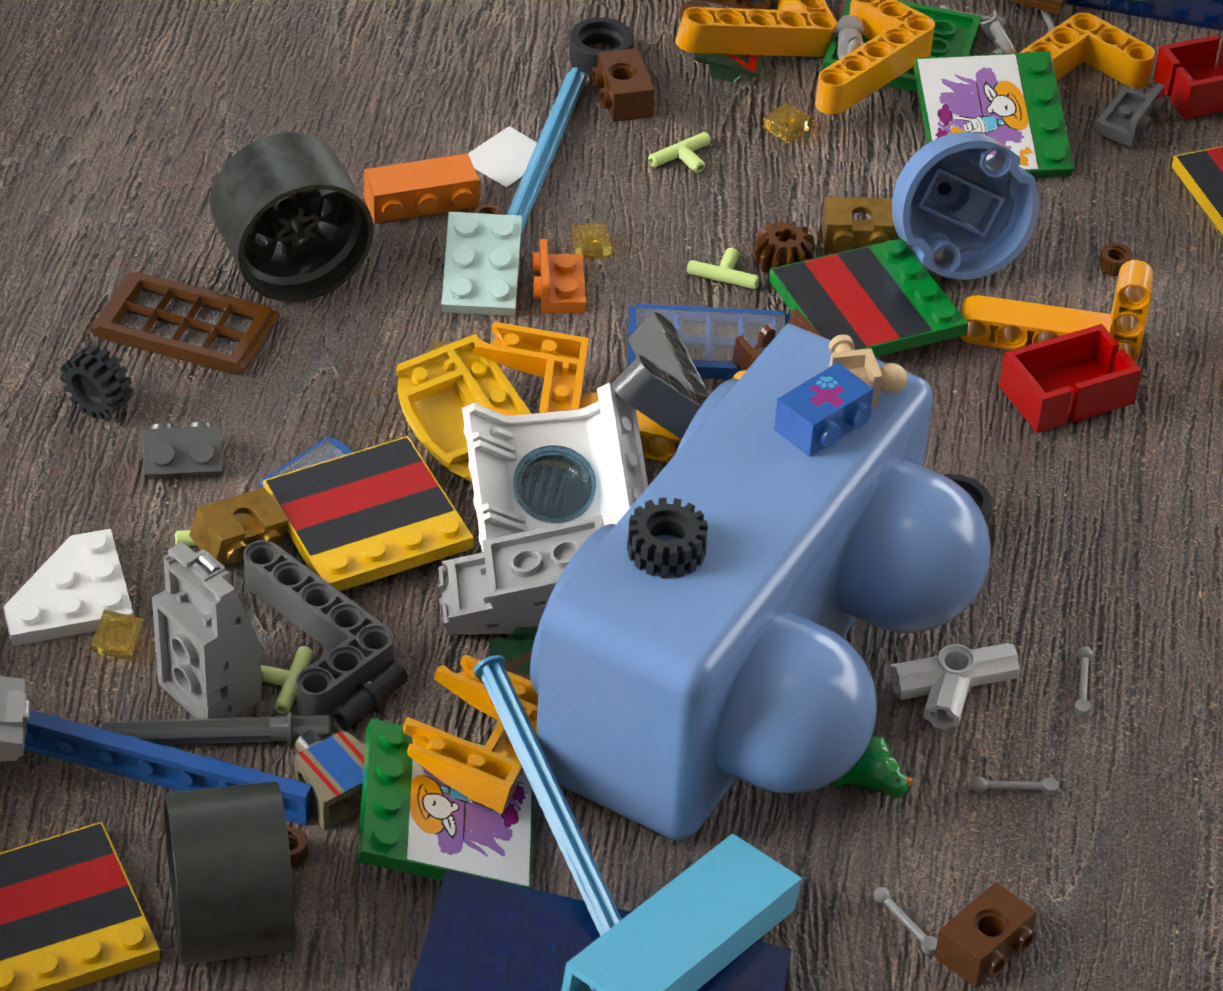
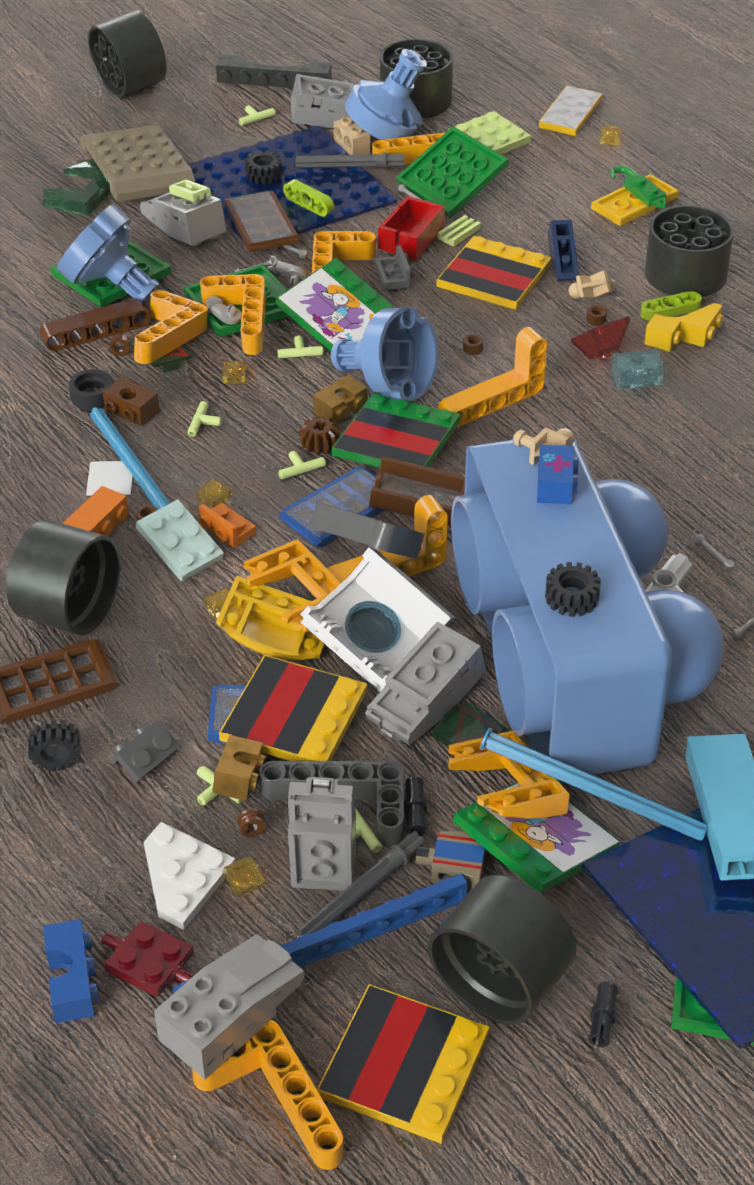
camera: 40 degrees left, 0 degrees up
(896, 144) = (300, 350): none -> yellowish green piece
(1069, 378) = (530, 412): red piece -> none

